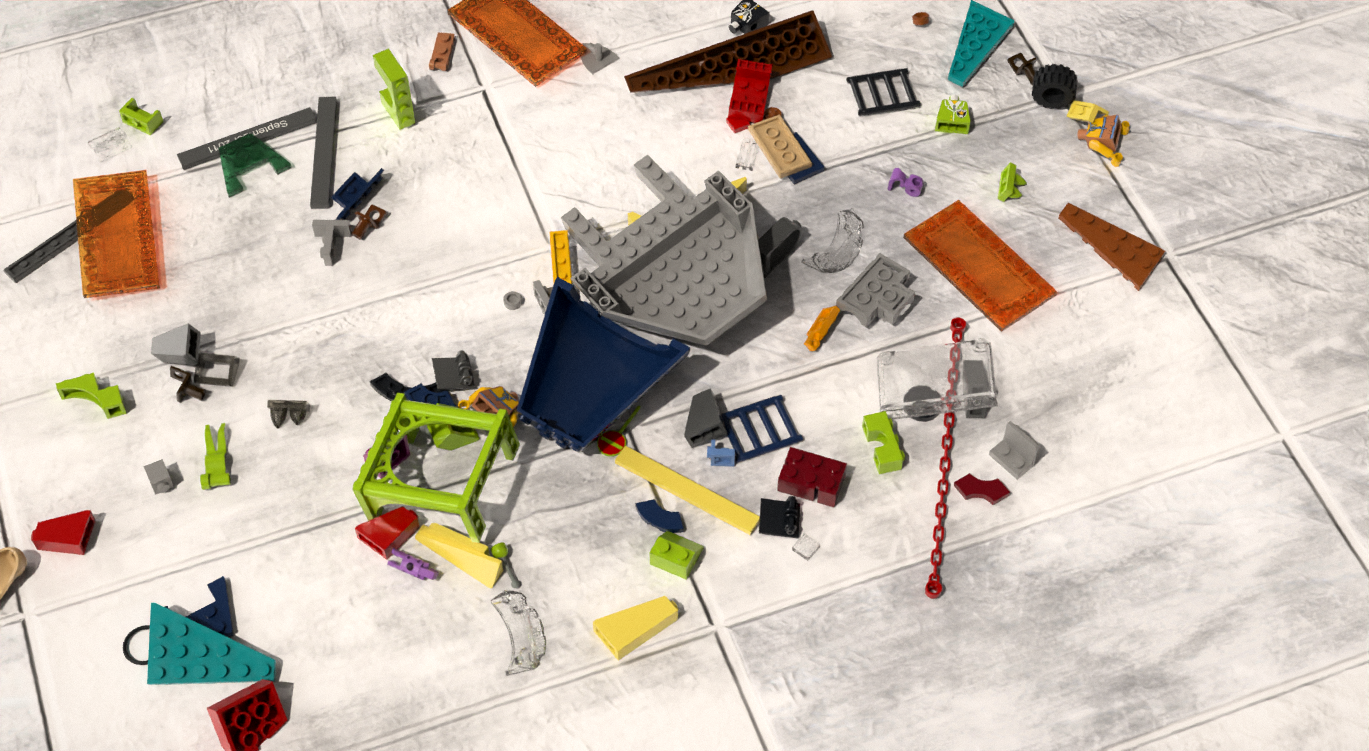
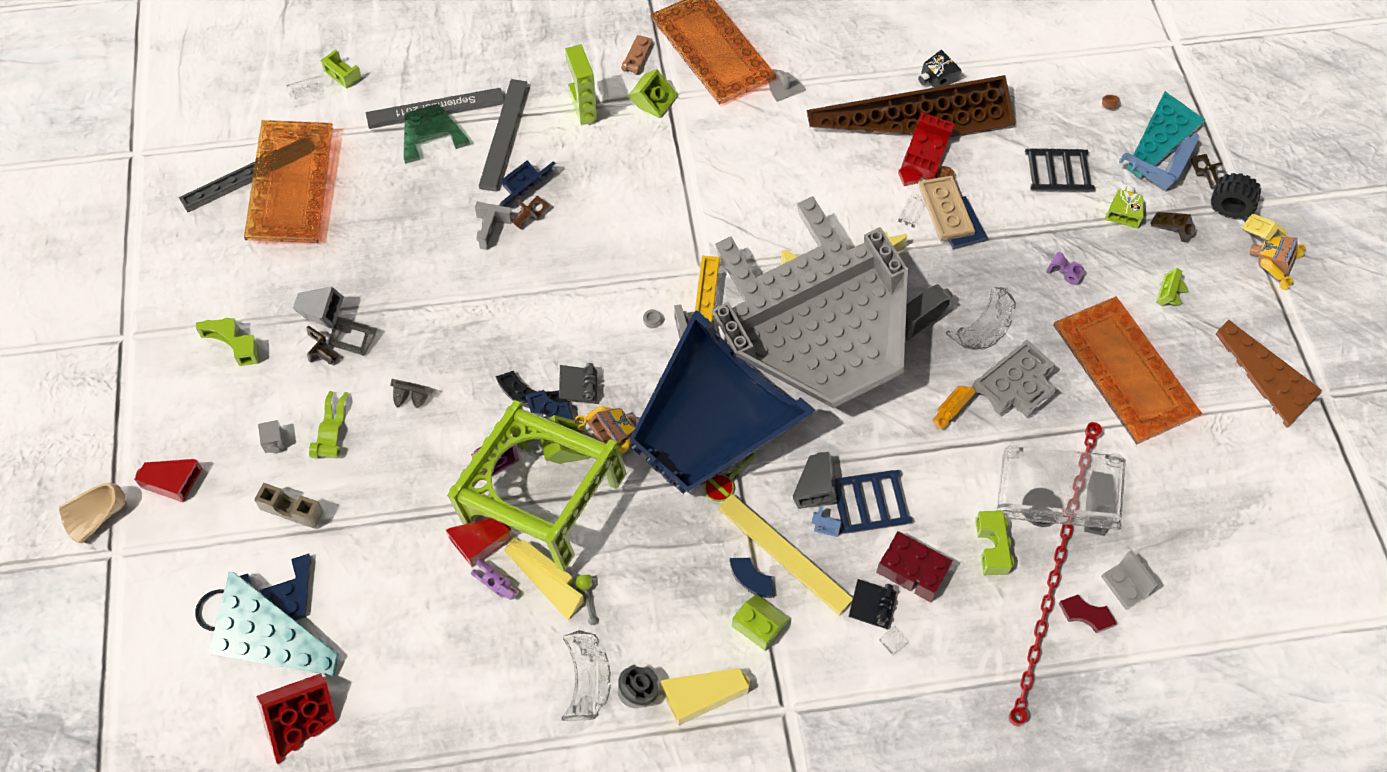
camera: 10 degrees right, 5 degrees up
(177, 534) = (300, 510): none -> dark tan arch
(466, 87) = (653, 93): none -> lime slope
(572, 631) = (637, 686): none -> dark grey cone
(979, 81) = (1167, 177): none -> medium blue hinge
(1005, 119) = (1181, 221): none -> dark brown bracket

